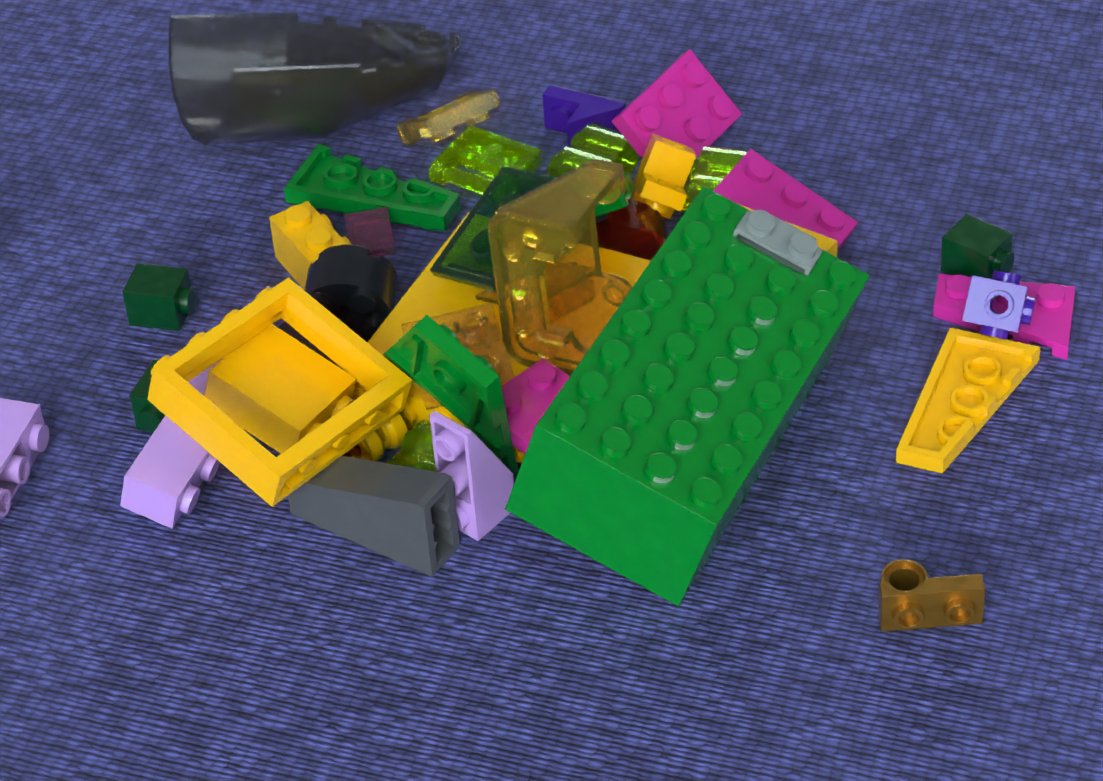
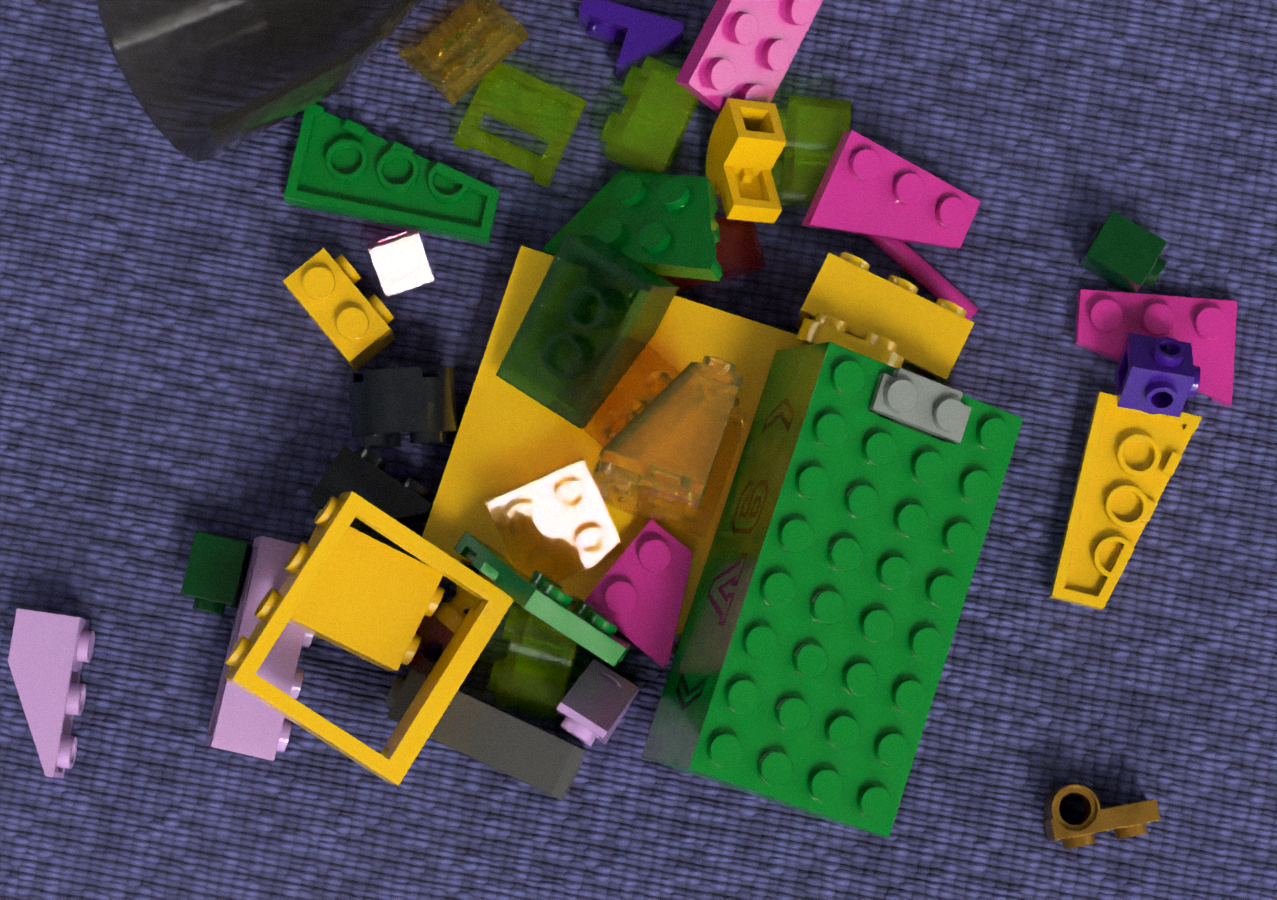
camera: 10 degrees left, 40 degrees up
(159, 297) = (172, 398): dark green brick -> none

